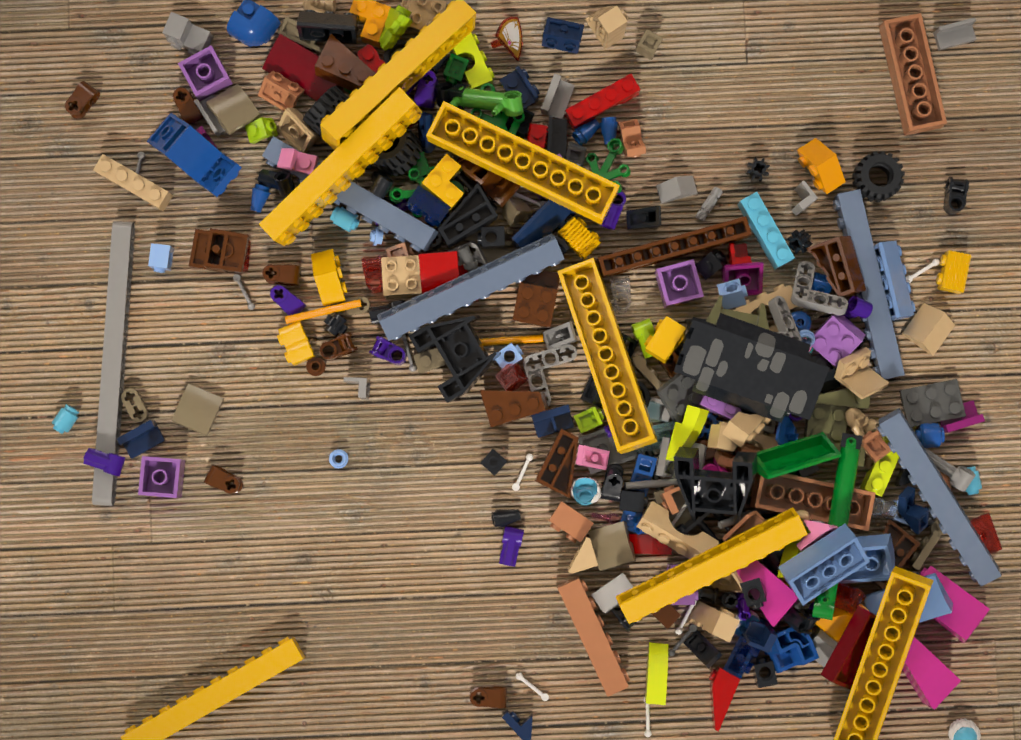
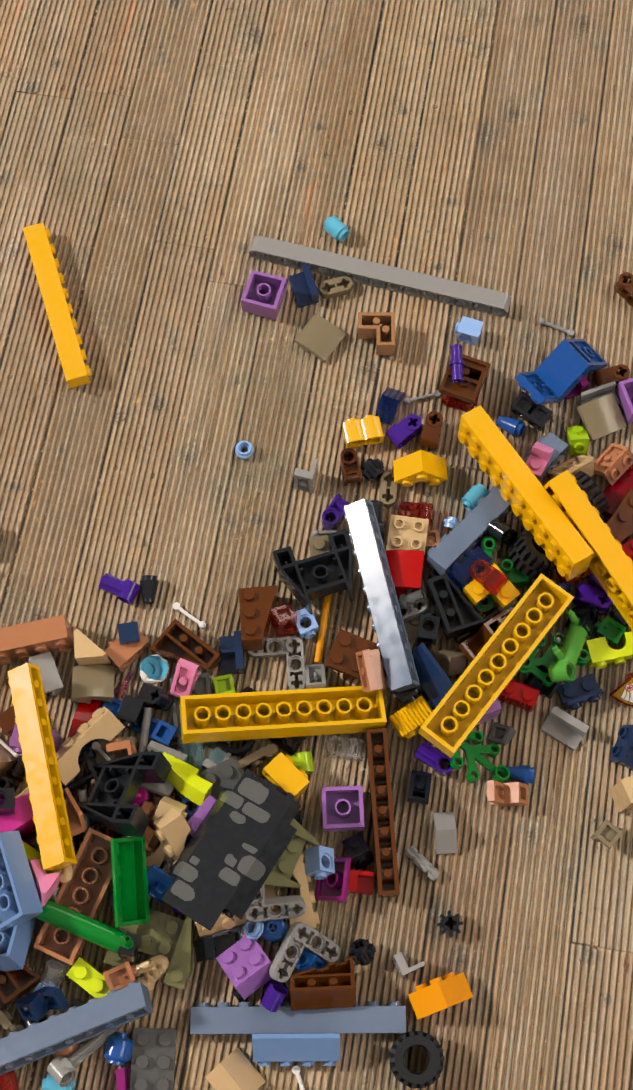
camera: 105 degrees right, 15 degrees down
(109, 463) = (287, 251): dark purple piece -> none
(133, 182) = (538, 323): tan arch -> none
(176, 346) = (379, 327): none -> medium nougat brick
(211, 258) = (457, 363): none -> dark purple pin
(220, 479) = (248, 347): reddish brown piece -> none
(238, 187) = (529, 411): none -> black brick
(260, 322) = (389, 405): none -> clear blue slope
(278, 180) = (524, 441): black piece -> none
(320, 370) = (336, 450): reddish brown plate -> none
(323, 311) = (387, 459): light orange bar -> none
(441, 183) = (489, 578): none -> clear red piece
(493, 462) = (204, 587): black brick -> none
(549, 281) = (370, 670): none -> nougat panel
(557, 136) = (522, 717): black panel -> none
(559, 521) = (128, 633): none -> dark blue tile
(584, 132) = (523, 750): blue cone -> none
(610, 96) = (556, 781): red arch -> none
(766, 230) = (381, 916): medium azure brick -> none
(857, 376) = (201, 980): tan bracket -> none

